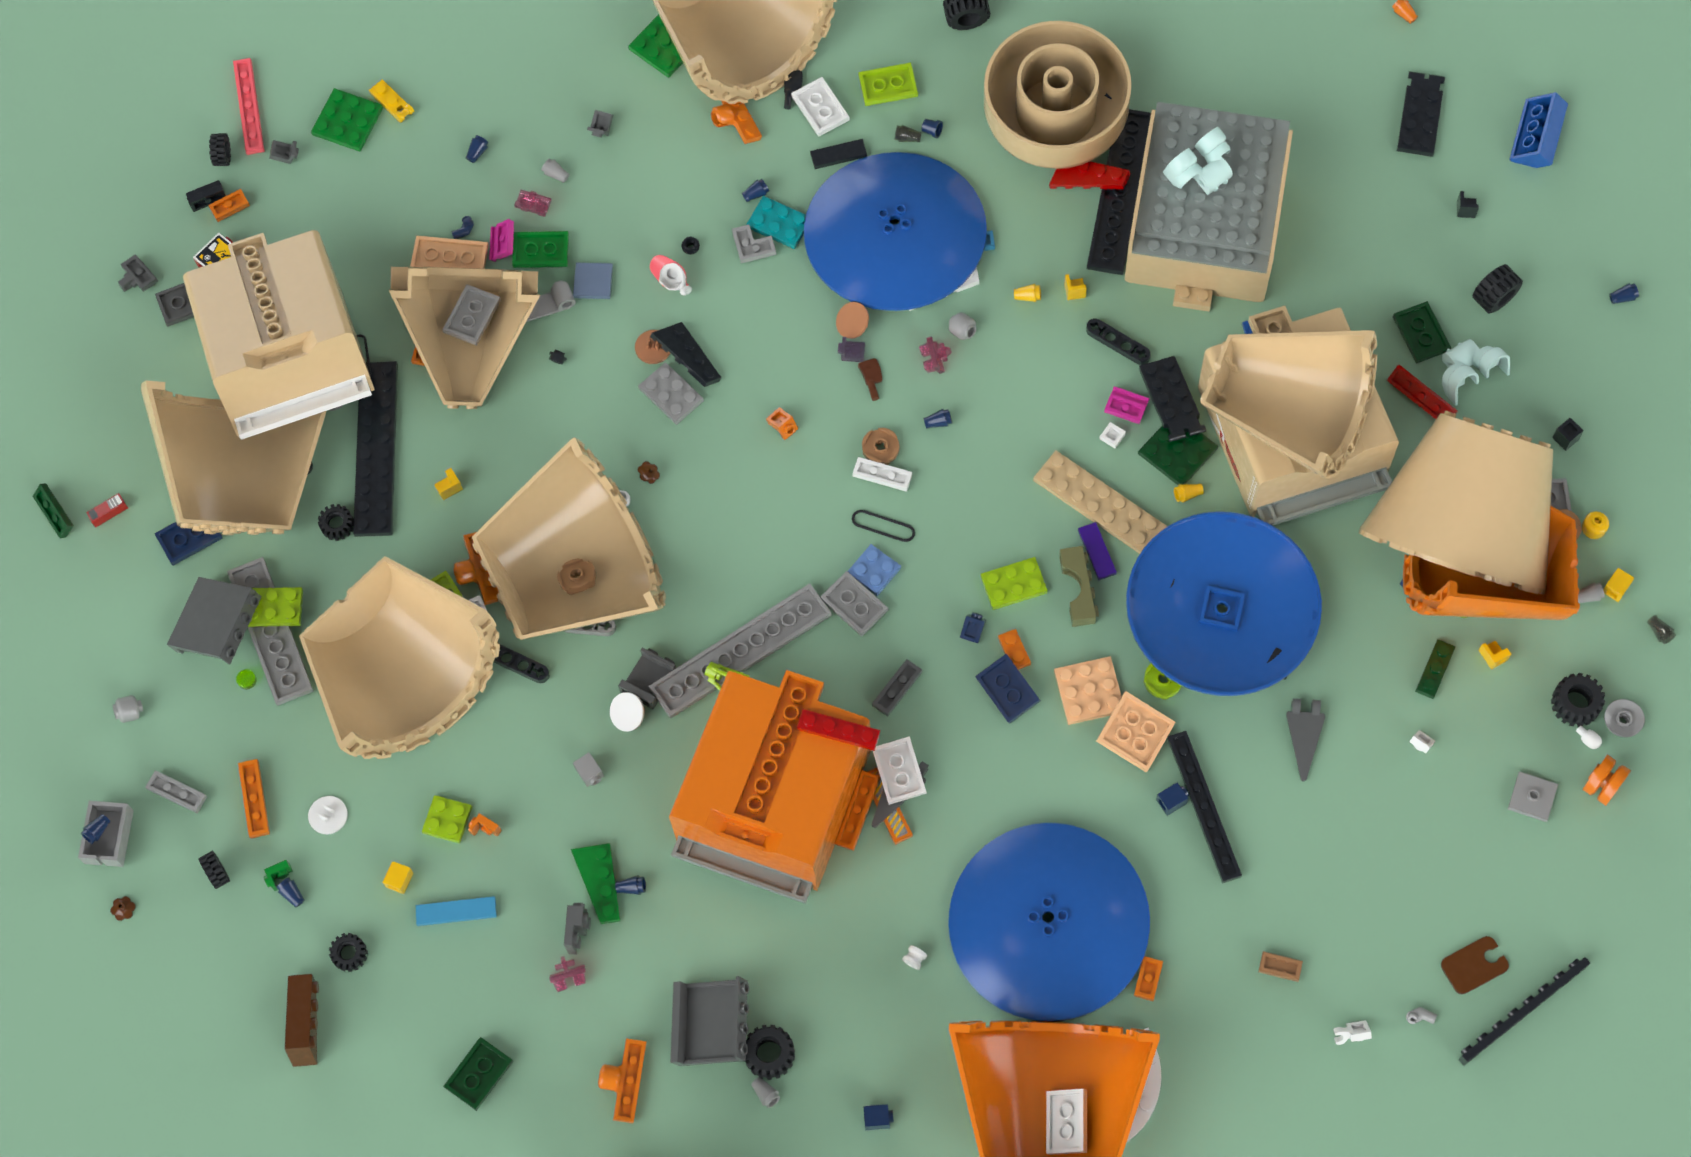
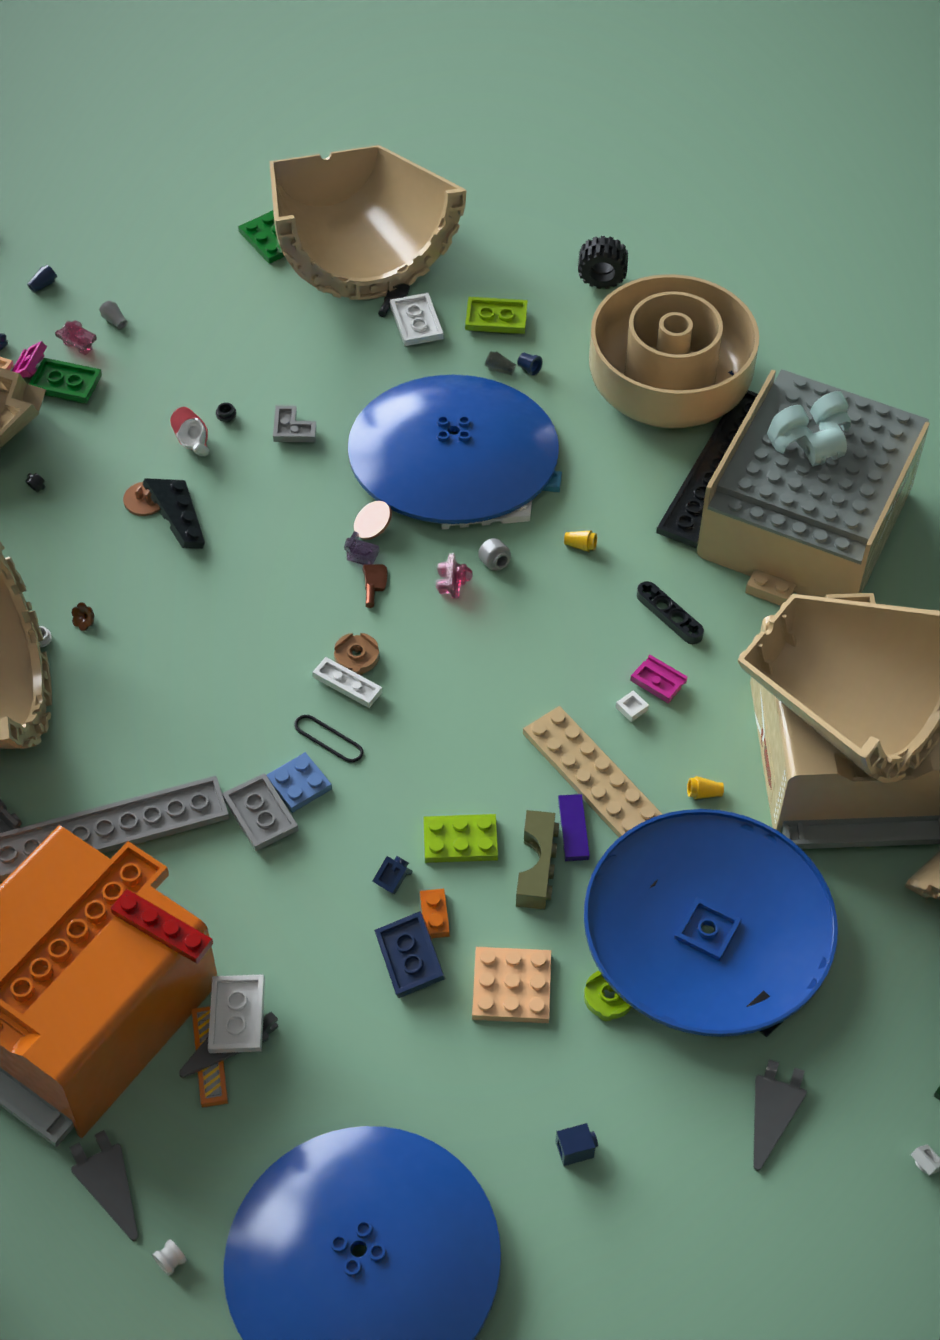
camera: 10 degrees right, 15 degrees down
(557, 300) = (63, 431): light grey door -> none
(593, 280) = (107, 422): sand blue tile -> none
(600, 123) = (179, 284): dark grey bracket -> none
(670, 393) = (143, 546): light grey plate -> none
(739, 116) = (325, 307): orange plate -> none
(755, 190) = (316, 378): dark blue cone -> none
(778, 221) = (330, 411): teal plate -> none
(782, 423) = (255, 604): orange bracket -> none
(838, 154) = (419, 365): black tile -> none
(848, 916) = (107, 1181): none -> dark grey flag
(857, 810) = (169, 1051): orange tile -> none
(897, 687) = (274, 919): dark grey plate -> none
(938, 419) = (433, 641): dark blue cone -> none
(1074, 288) = (636, 548): yellow panel -> none
(1090, 175) = (686, 442): red wing -> none
(1135, 731) = (553, 1047): light nougat plate -> none
(1171, 398) = (714, 683): black hinge -> none
(1179, 458) = (706, 741): dark green plate -> none
(1204, 807) = (615, 1169): black plate -> none

